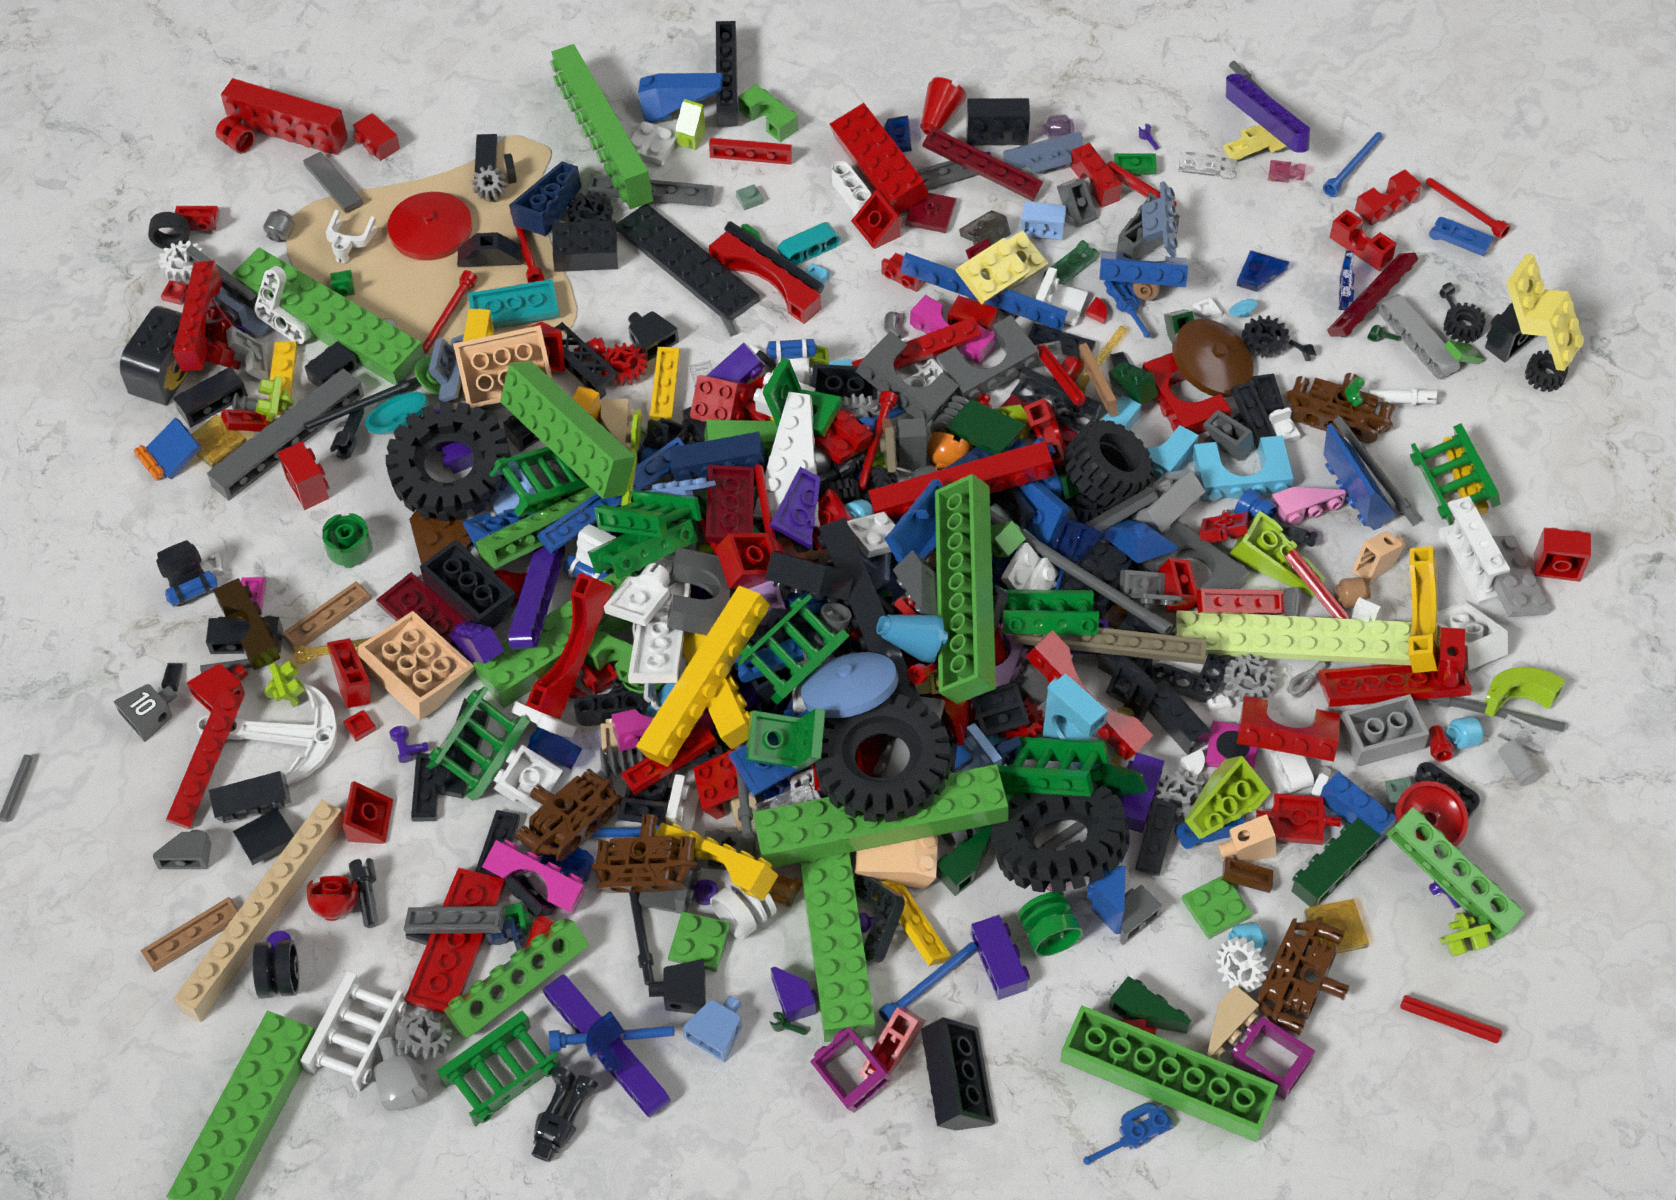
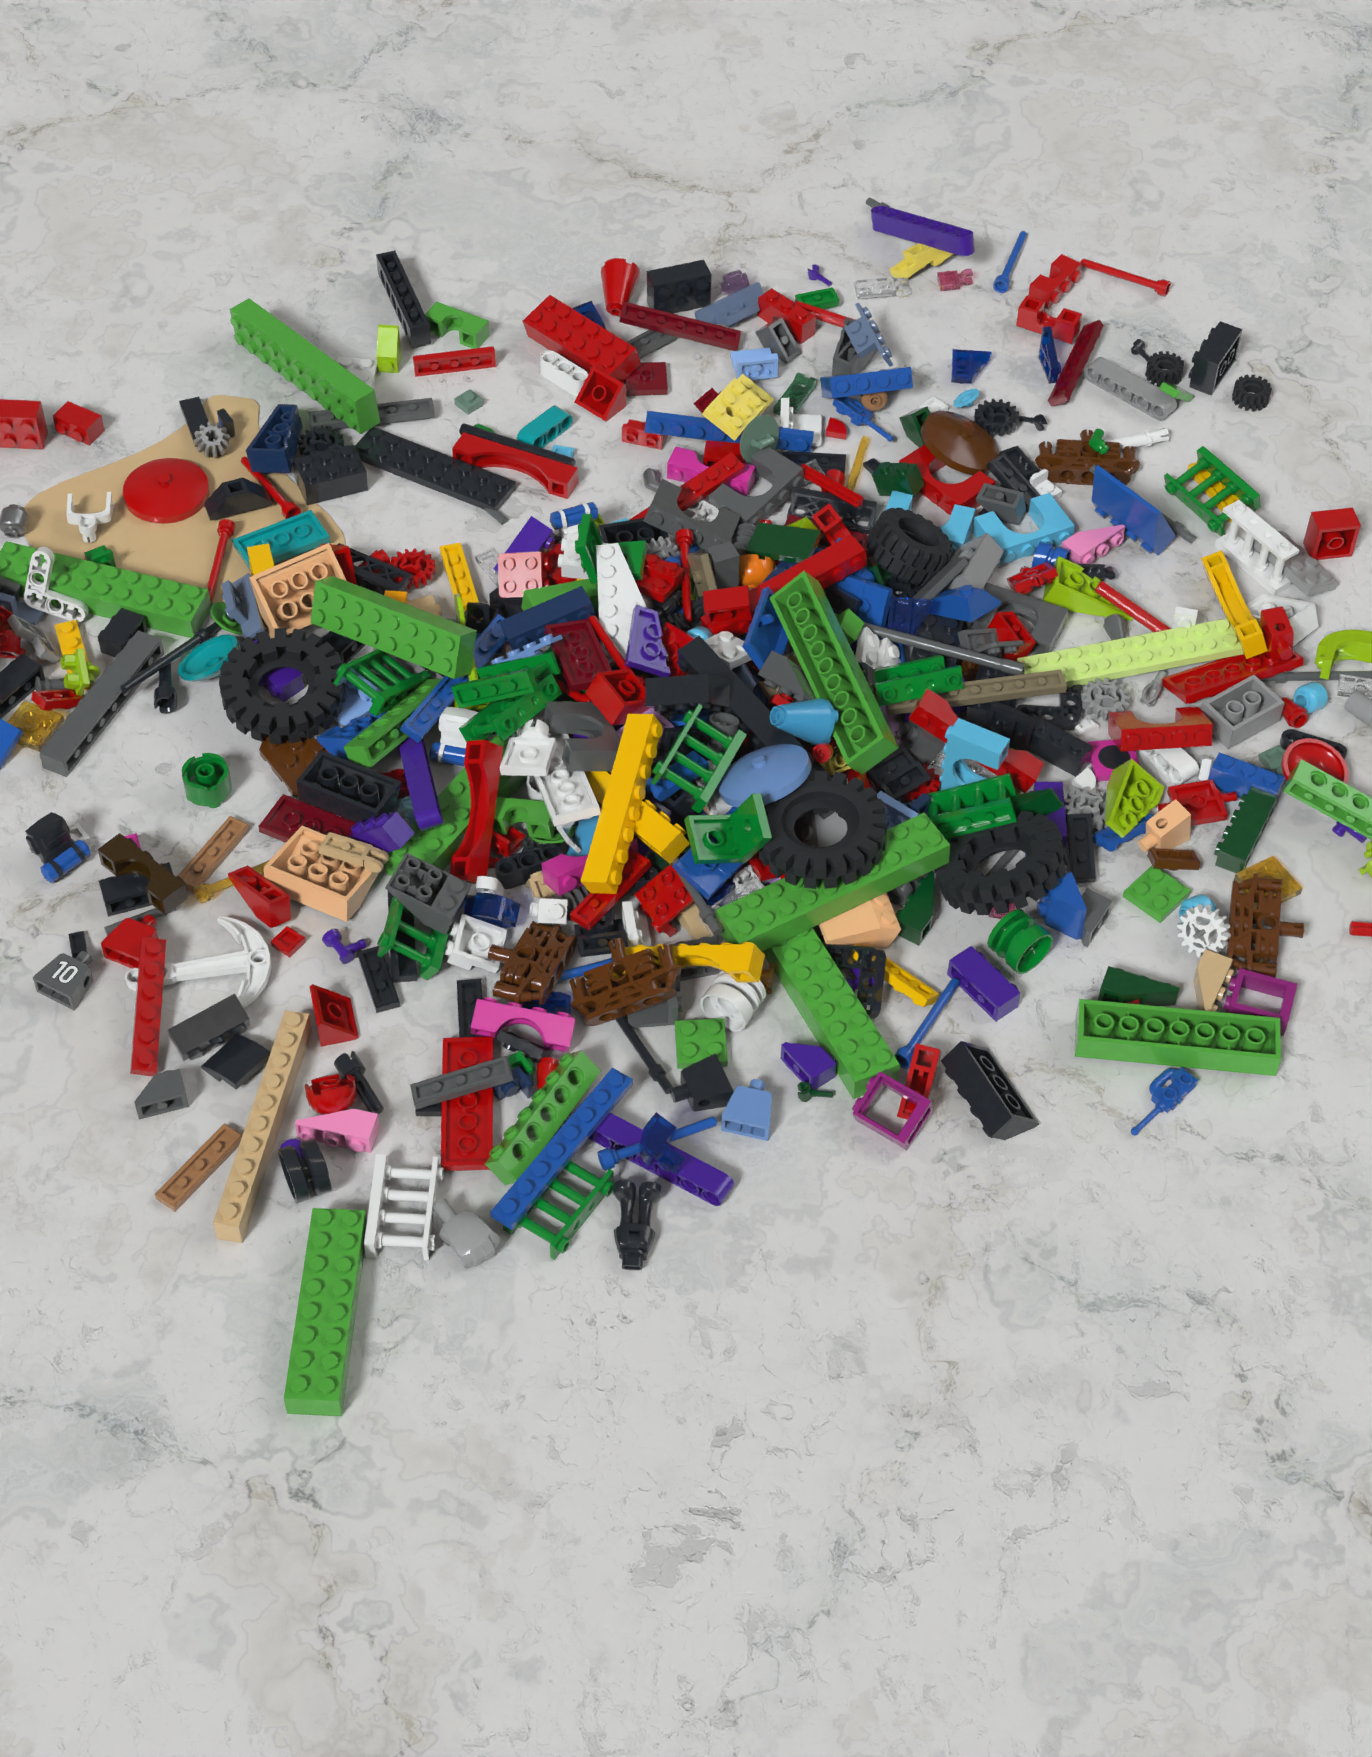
camera: 20 degrees left, 5 degrees down
(281, 685) = (195, 925): lime hips -> none
(304, 475) = (139, 732): red brick -> none
(333, 182) = (50, 472): dark grey tile -> none
(335, 935) = (344, 1128): none -> bright pink slope
(423, 1035) = (473, 1191): light grey gear -> none
(445, 653) = (354, 852): none -> tan hinge
(493, 716) = (428, 892): none -> dark grey slope
(518, 1017) = (561, 1148): none -> blue plate
(604, 764) = (549, 910): none -> white bracket
(651, 332) = (427, 535): black torso -> none
(665, 92) = (355, 325): blue wedge -> none
(704, 891) = (690, 1000): dark purple tile -> none
(894, 486) = (727, 605): none -> red brick
(990, 226) = (704, 379): clear smoke bracket -> none
(1007, 304) = (758, 434): none -> sand green shield
(1098, 380) = (866, 482): medium nougat tile -> none
(1240, 601) = (1071, 636): plate -> none
(1350, 590) = (1163, 606): medium nougat head -> none
(1377, 332) = (1092, 393): dark green hand -> none
(1378, 556) = (1176, 566): light nougat torso -> none
(1461, 236) = (1130, 300): blue plate -> none
(1545, 312) = (1240, 337): light yellow bracket -> none

